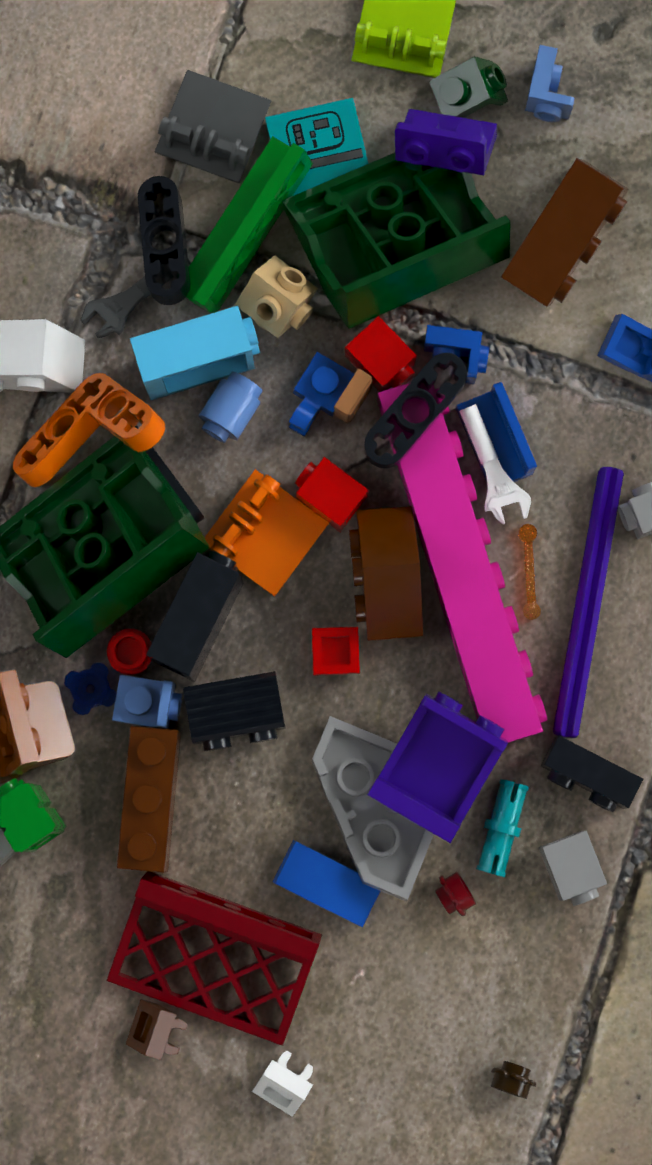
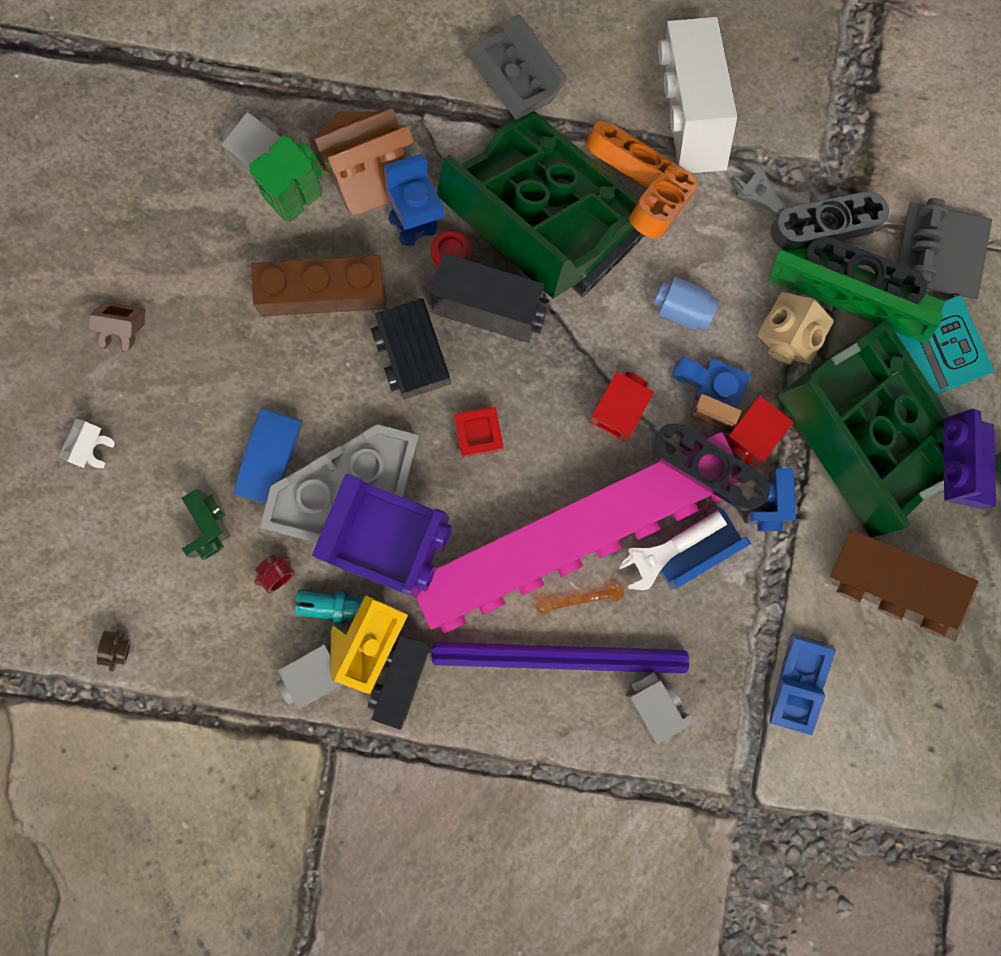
camera: 75 degrees right, 0 degrees up
(64, 682) = (412, 192): none -> blue bracket
(146, 702) = (407, 272): medium blue bracket -> none
(195, 352) = (730, 259): medium azure window -> none
(225, 195) = (881, 266): none -> black beam
(228, 919) = (224, 372): dark red fence -> none
(265, 532) = (577, 353): orange hinge -> none
(381, 956) = (207, 514): none -> dark green bracket
(387, 572) = (556, 465): reddish brown brick -> none
(555, 807) = (363, 650): none -> yellow slope

